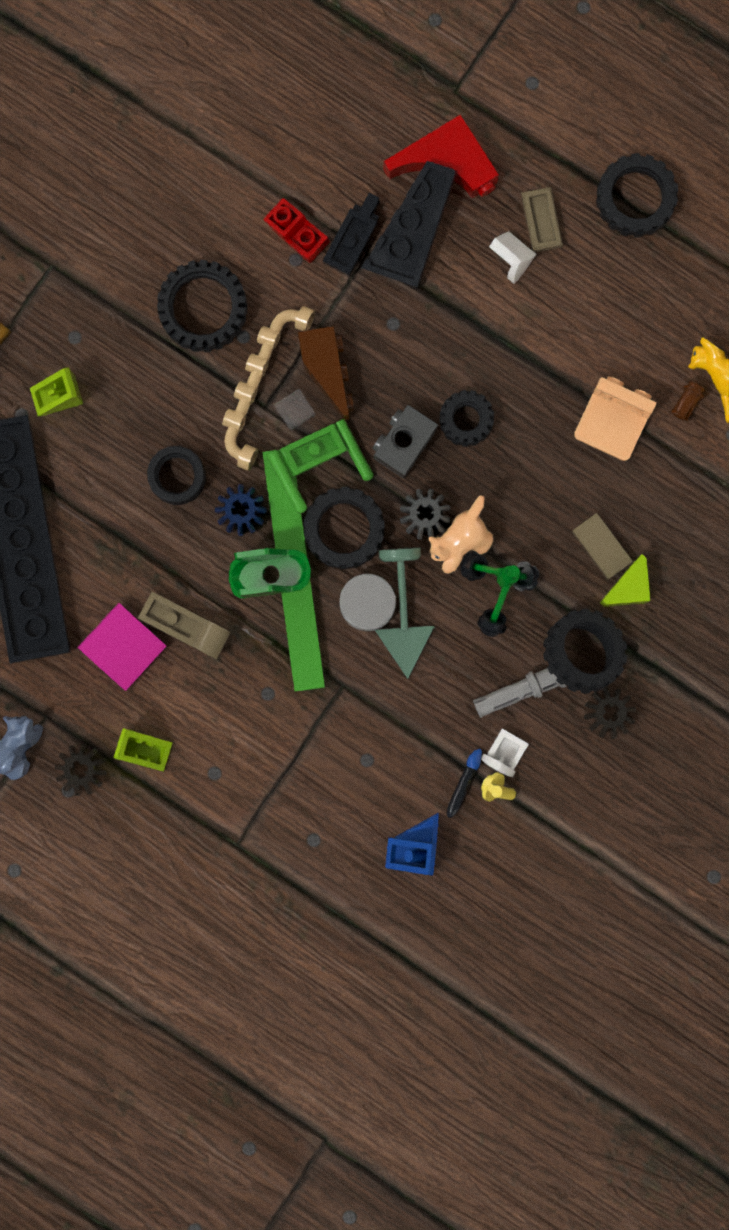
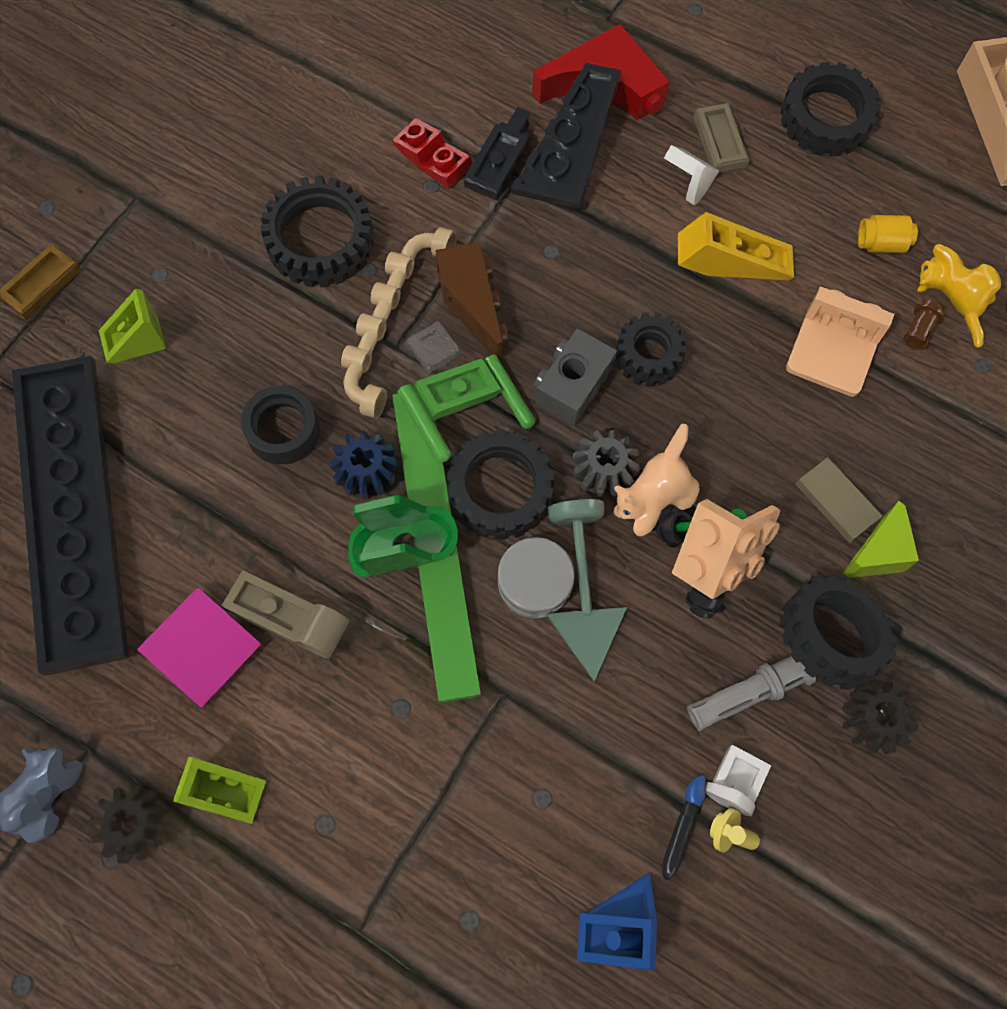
camera: 10 degrees left, 15 degrees down
(501, 594) = (723, 548): none -> light nougat bracket
(541, 333) = (731, 250): none -> yellow slope
(669, 319) = (887, 234): none -> yellow brick

